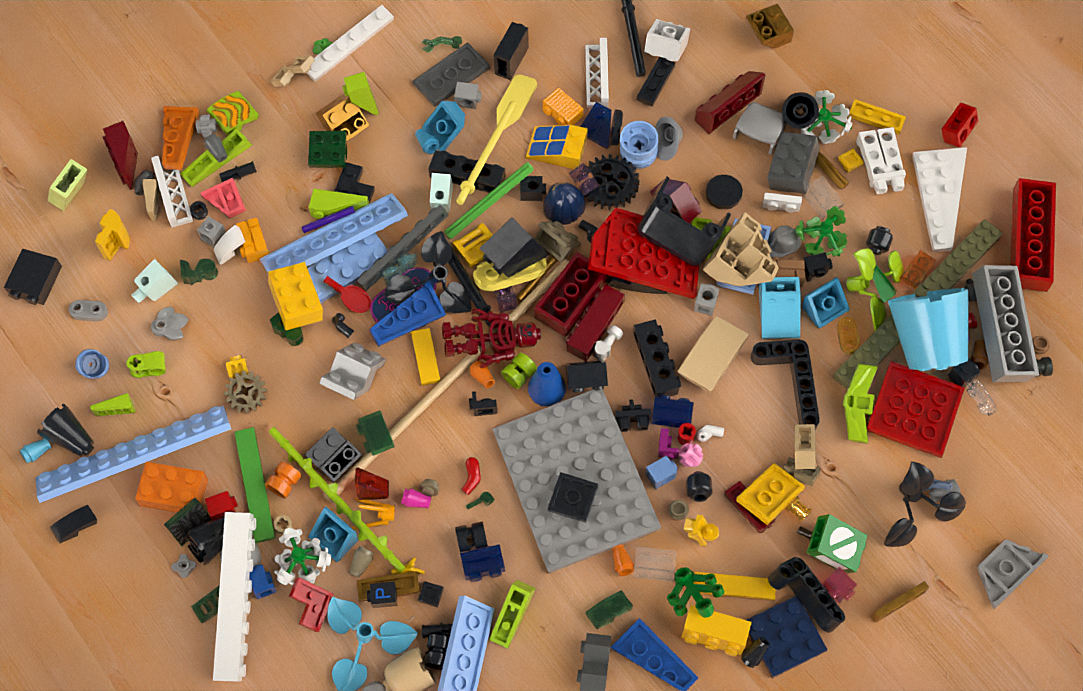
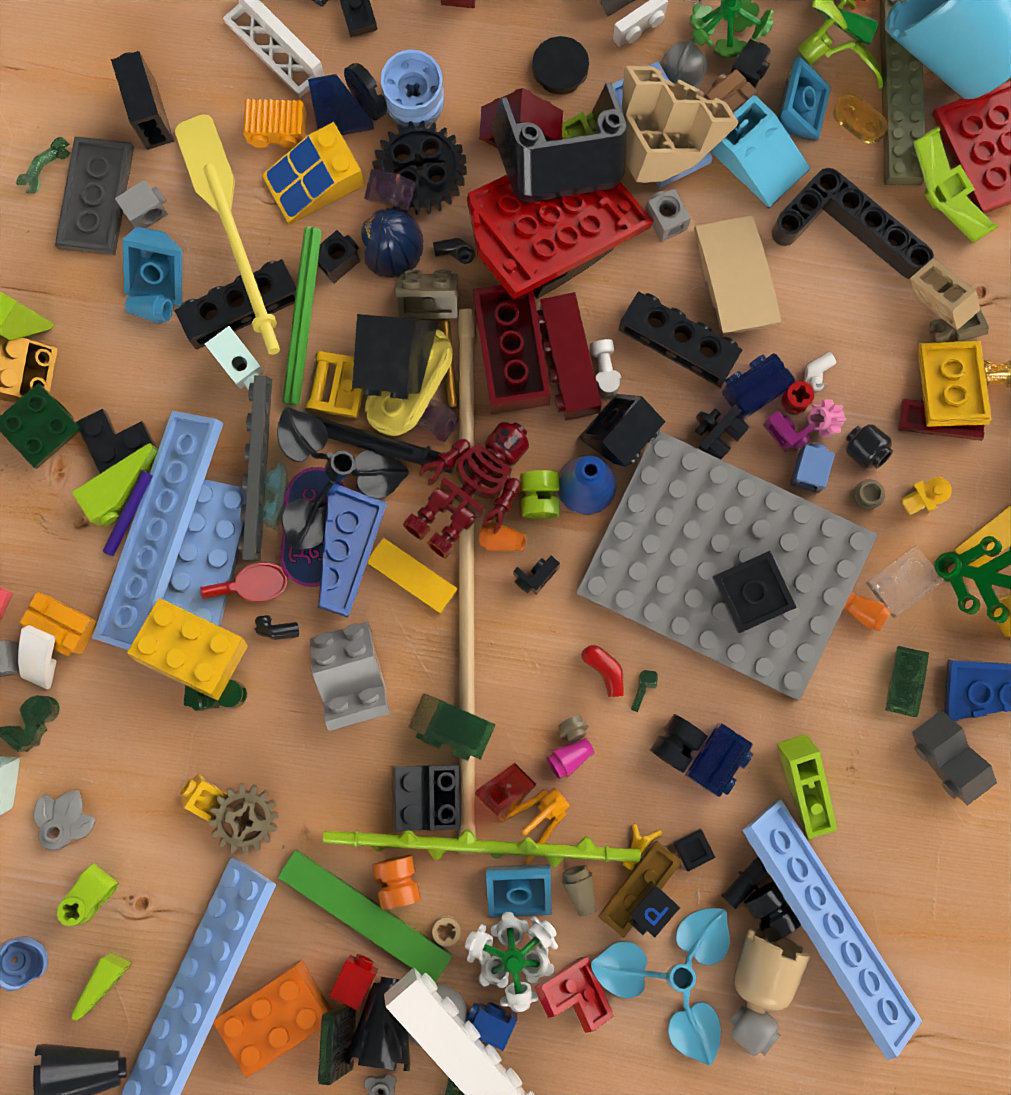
camera: 40 degrees left, 15 degrees up
(669, 137) = (439, 44): light grey piece -> none

